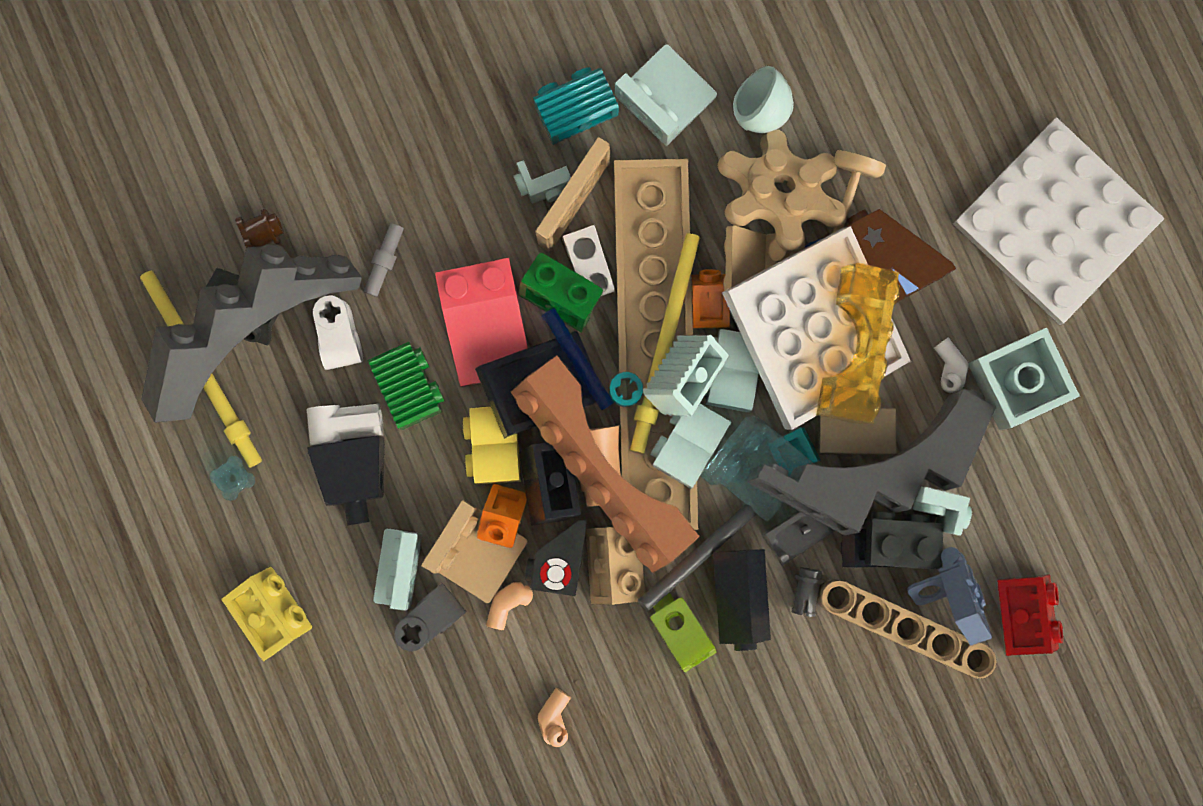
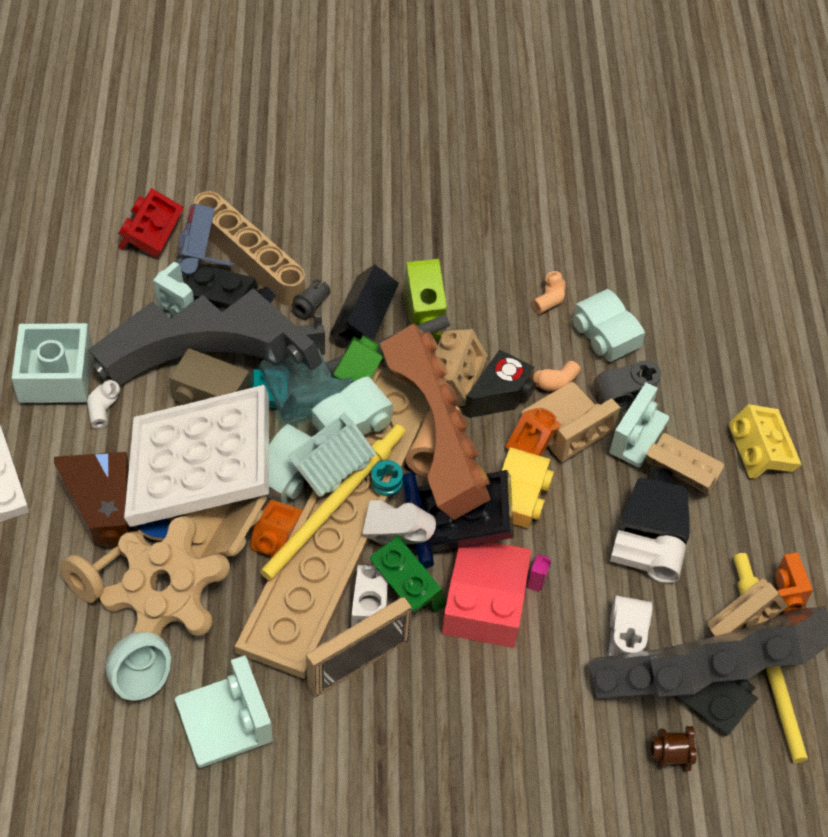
camera: 160 degrees left, 30 degrees down
(196, 452) = (793, 582): none -> orange bracket
(229, 387) = (751, 608): none -> tan bracket
(233, 467) = (766, 545): clear light blue plate -> none
(339, 542) = (685, 463): none -> tan bracket
(383, 259) = (561, 679): light grey bar -> none
(406, 385) = (581, 562): green brick -> none
(442, 358) = (539, 572): none -> dark pink tile
(476, 694) = (608, 325): none -> light aqua brick
(543, 187) = (380, 677): light aqua bracket -> none
(548, 485) = (489, 429): black brick -> none
(576, 104) = (315, 741): teal brick -> none
(593, 336) = (407, 522): none -> white leg
(715, 514) = (359, 359): none -> bright green brick
(868, 299) = (198, 391): clear yellow arch -> none

